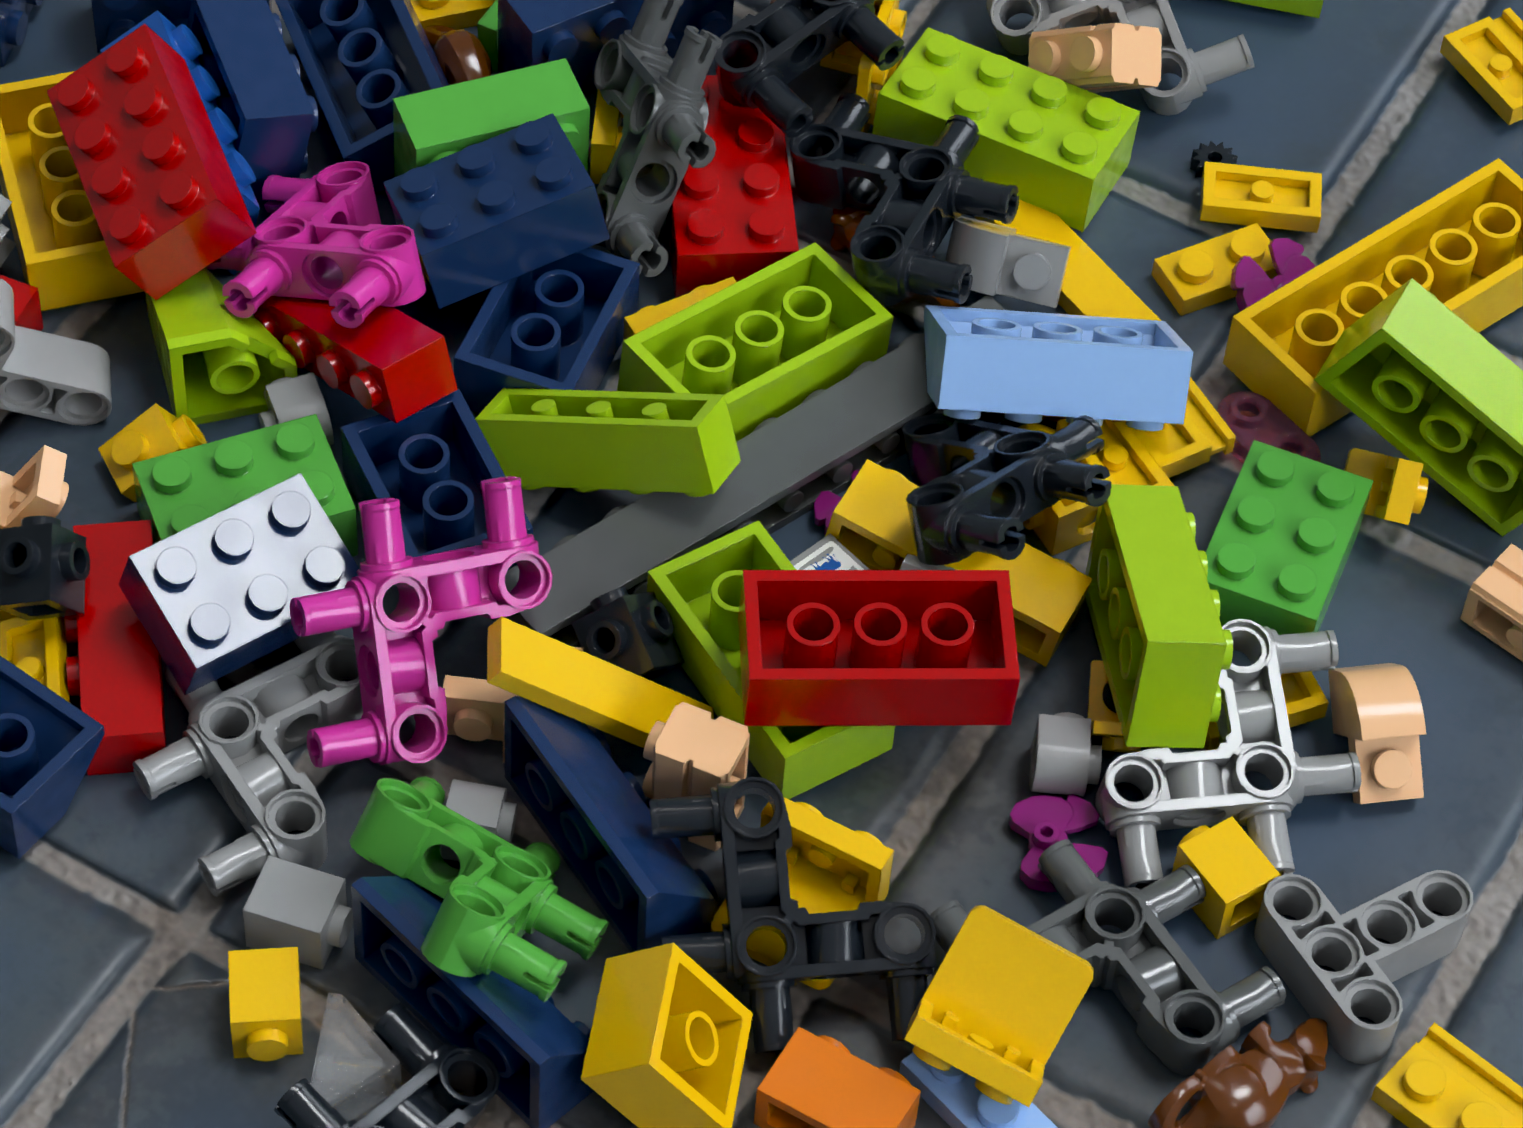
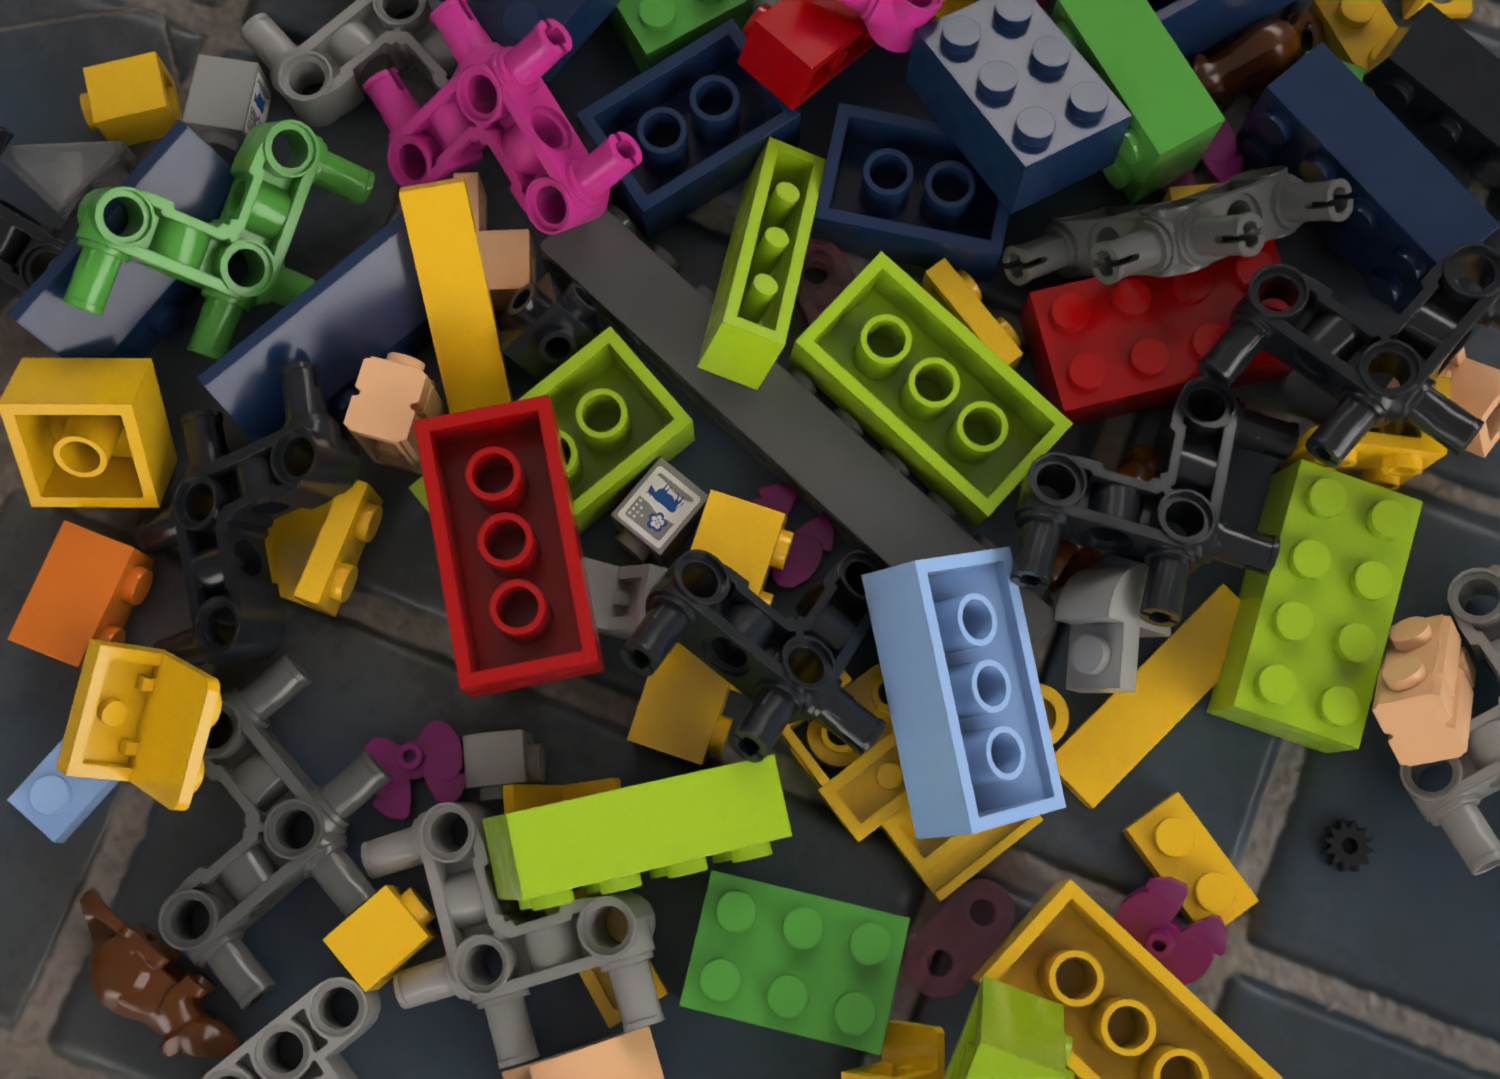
camera: 85 degrees right, 25 degrees up
(484, 806) = (341, 229): light grey plate -> none
(1261, 196) = (1298, 902): yellow plate -> none

